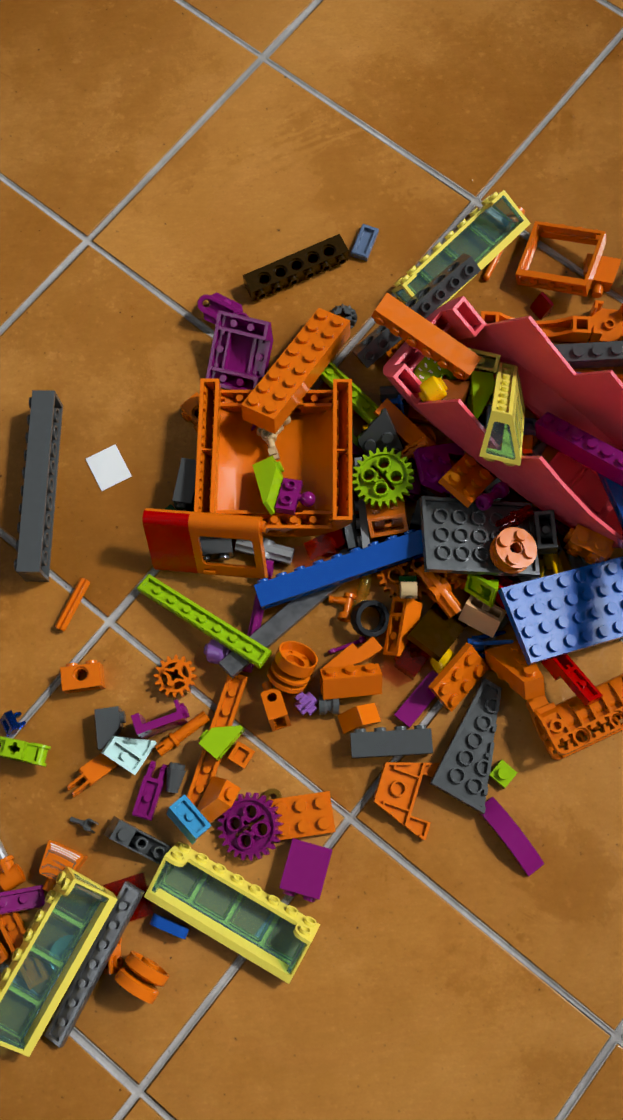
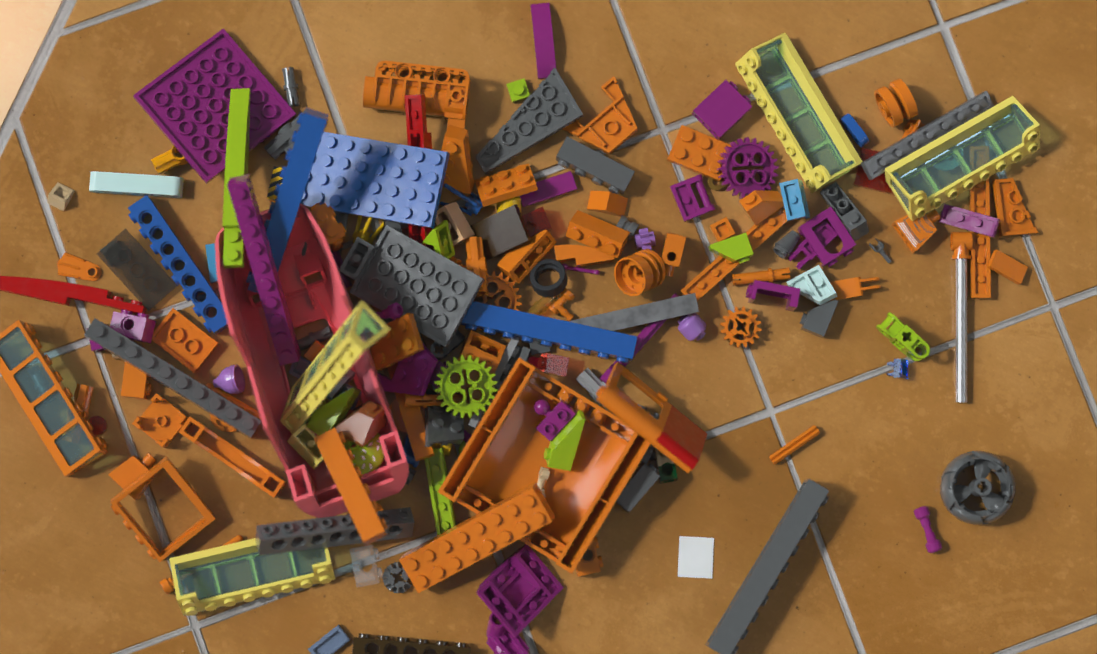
camera: 155 degrees left, 10 degrees up
(93, 681) = (830, 371): orange brick -> none
(159, 814) = (825, 257): none -> magenta panel
(204, 621) = (691, 358): lime tile -> none
(290, 763) = (686, 199): none -> magenta plate
(363, 303) = (358, 556): none -> clear brick
(407, 586) = (502, 281): tan leg -> none
(433, 389) = (377, 431): yellow head -> none
(515, 518) = (375, 283): clear red pin -> none
(518, 540) = (387, 249): orange wheel -> none
(542, 306) = (210, 476): dark red slope -> none

